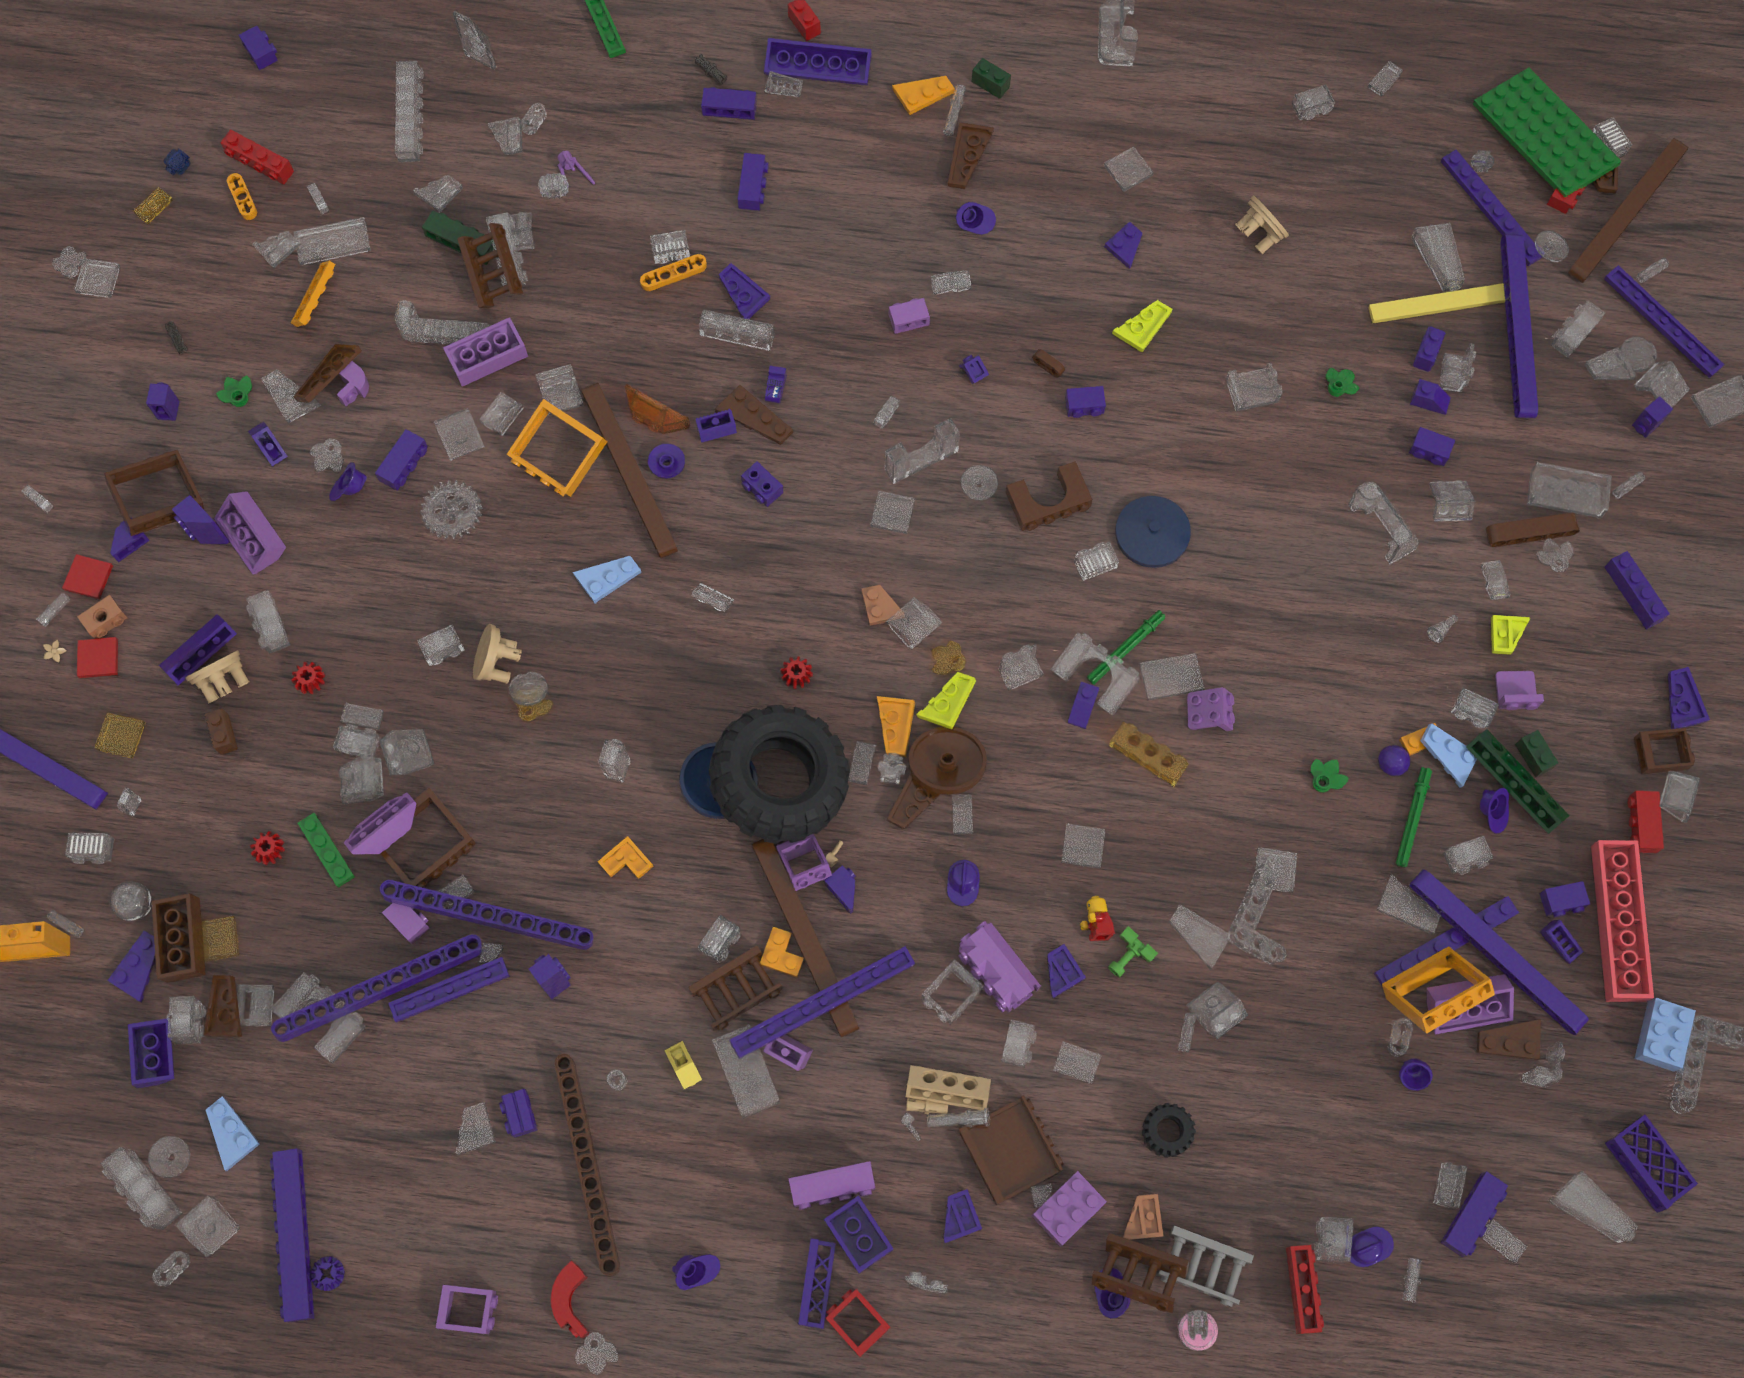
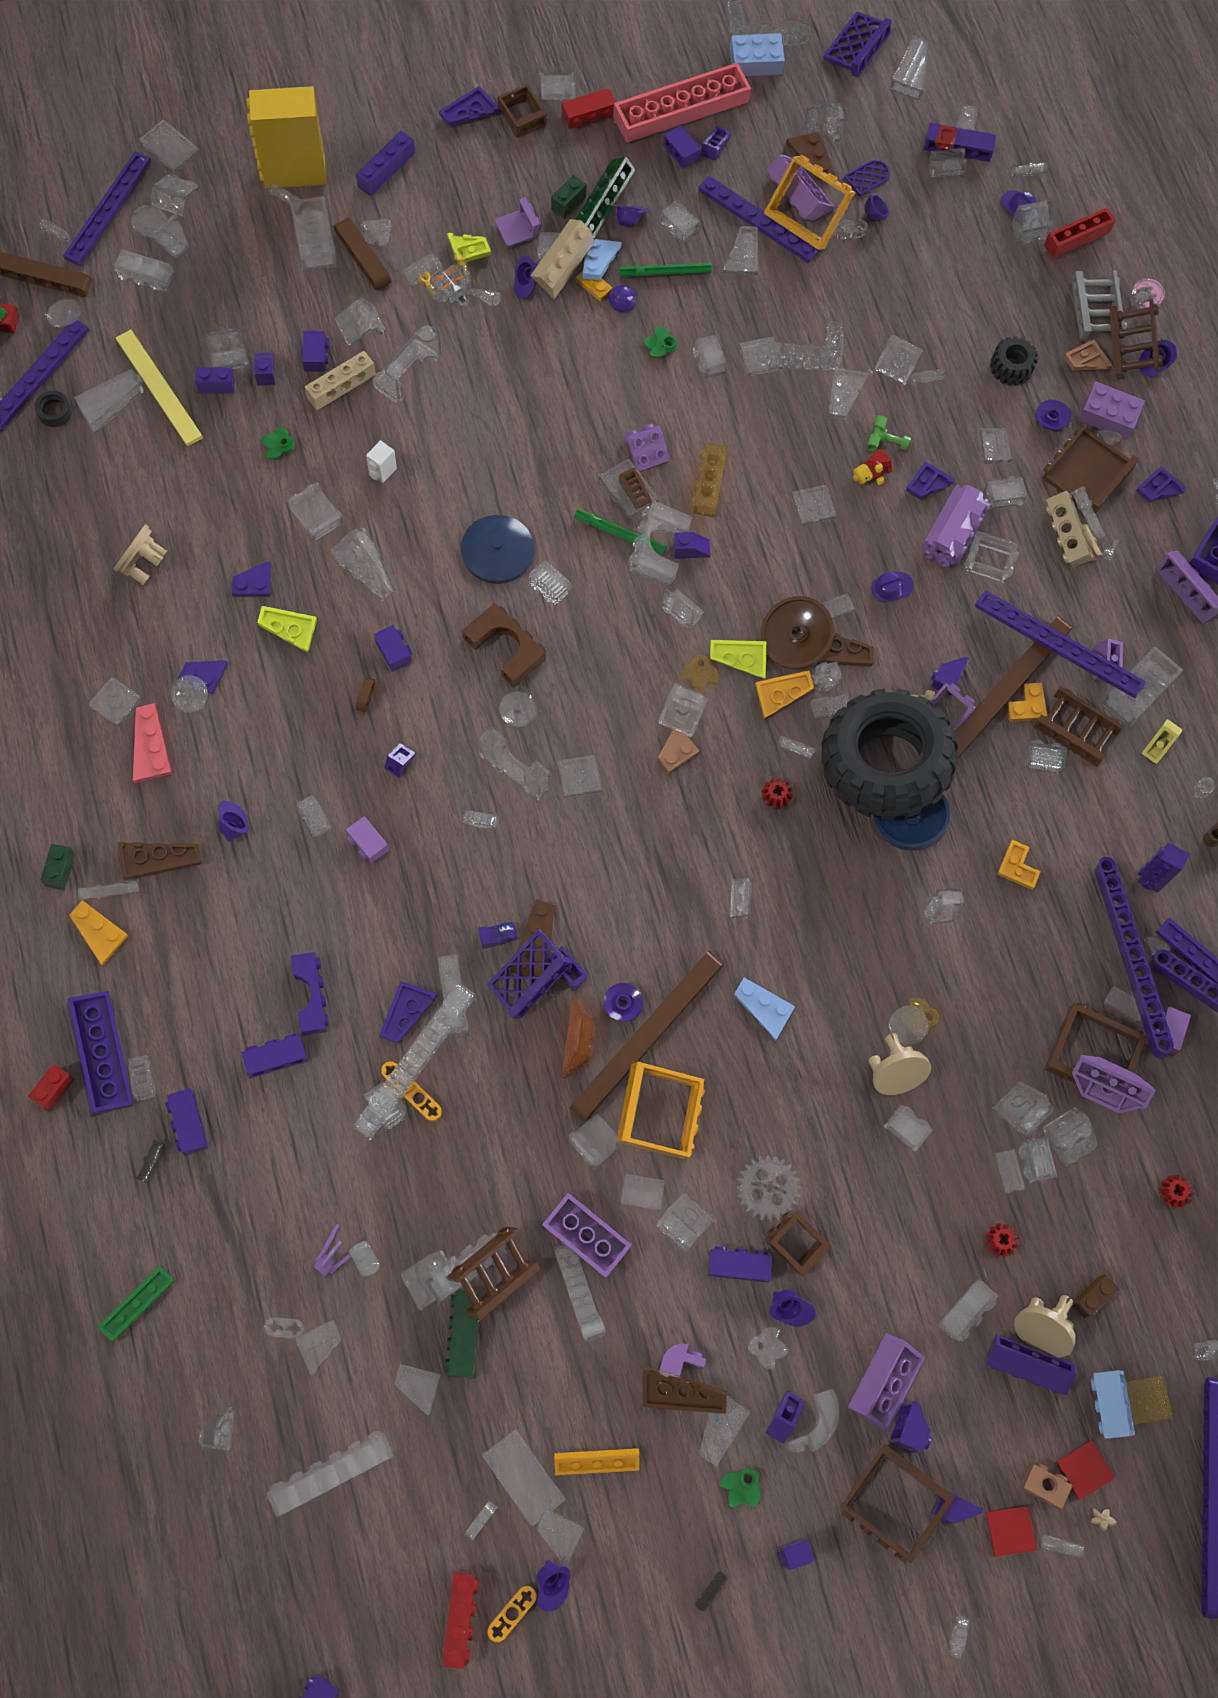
camera: 120 degrees left, 0 degrees up
(128, 696) = (1113, 1404): none -> light blue brick
(243, 227) = (552, 1585): none -> dark purple piece
(253, 476) = (825, 1426): none -> clear arch
(326, 850) = (1146, 1139): green plate -> none
(376, 514) = (811, 1256): none -> reddish brown window
(691, 272) = (414, 1061): none -> clear beam
(710, 392) = (536, 988): none -> dark purple fence
(761, 484) = (606, 902): dark purple brick -> none
(812, 230) = (311, 1018): none -> dark purple arch
(837, 711) = (796, 746): none -> clear axle
(1068, 180) = (149, 746): none -> coral wing
(1097, 1137) = (1053, 414): none -> dark purple dish
(1109, 224) = (189, 693): none -> clear dish
(1164, 669) = (631, 477): none -> reddish brown slope
(1193, 409) = (362, 559): none -> clear wedge
(1202, 314) = (253, 582): none -> dark purple wing
(1281, 456) = (381, 462): none -> white brick
(1291, 815) = (710, 356): none -> clear brick
(1389, 457) = (340, 380): none -> tan brick
(1449, 674) = (523, 281): none -> dark purple piece
(1451, 196) = (48, 397): none -> black tyre
(1454, 708) = (563, 257): none -> tan slope
(1465, 596) = (451, 284): none -> clear torso
(1470, 1088) = (877, 183): none -> dark purple window
(1475, 1186) = (946, 138): none -> red bracket
(1499, 952) = (751, 178): dark purple beam -> none
(1519, 326) = (159, 315): dark purple beam -> none
(1652, 417) = (214, 188): dark purple brick -> none
(1678, 483) = (287, 136): none -> yellow brick

